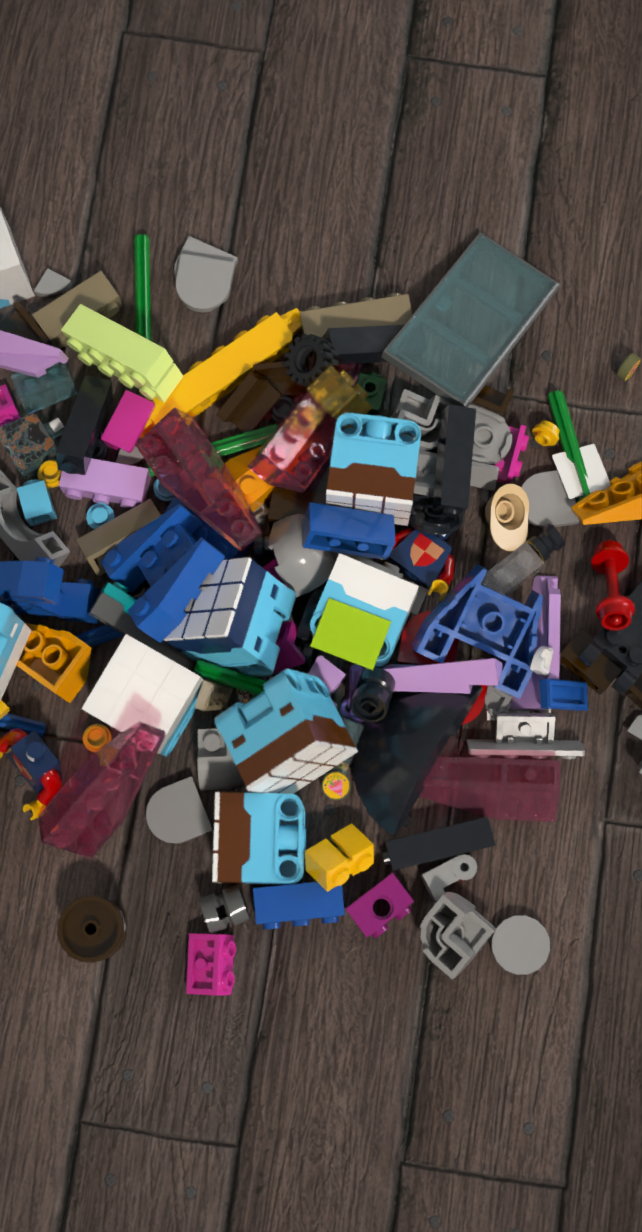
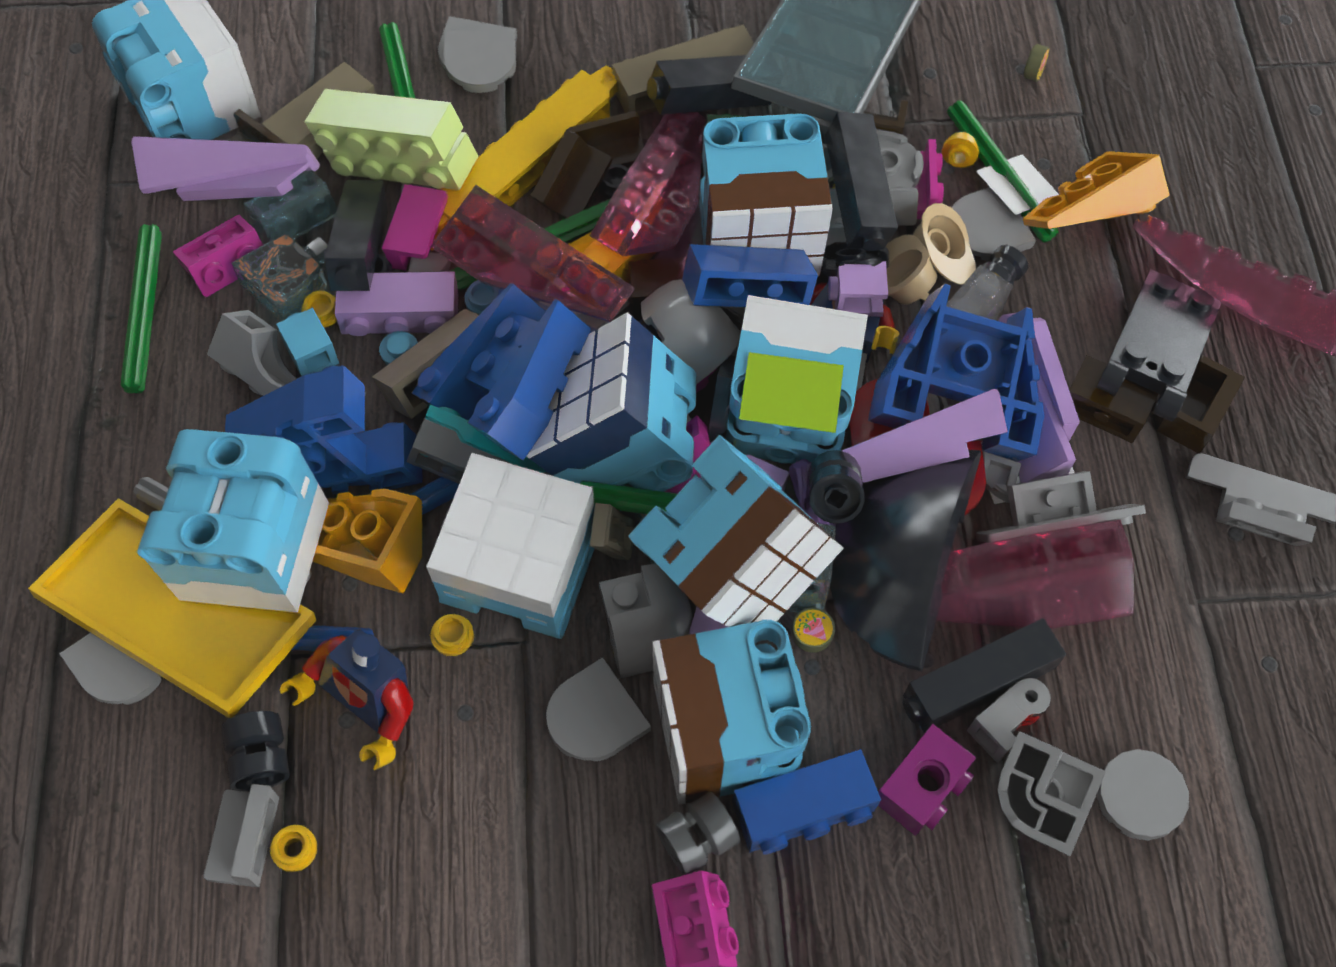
camera: 15 degrees left, 15 degrees down
(52, 284) = (279, 95): light grey tile -> none
(80, 915) = (473, 906): dark brown wheel -> none
(100, 792) = (478, 687): clear pink wedge -> none
(300, 353) = (630, 91): black tyre -> none
(333, 865) = (851, 717): yellow piece -> none
(337, 394) = (684, 119): clear yellow piece -> none
(429, 547) = (859, 288): none -> lavender window
(474, 535) = (910, 270): none -> tan piece
(542, 660) = (1052, 401): white tile -> none
(563, 695) = (1091, 443): blue tile -> none
(613, 610) = (1127, 313): red piece -> none

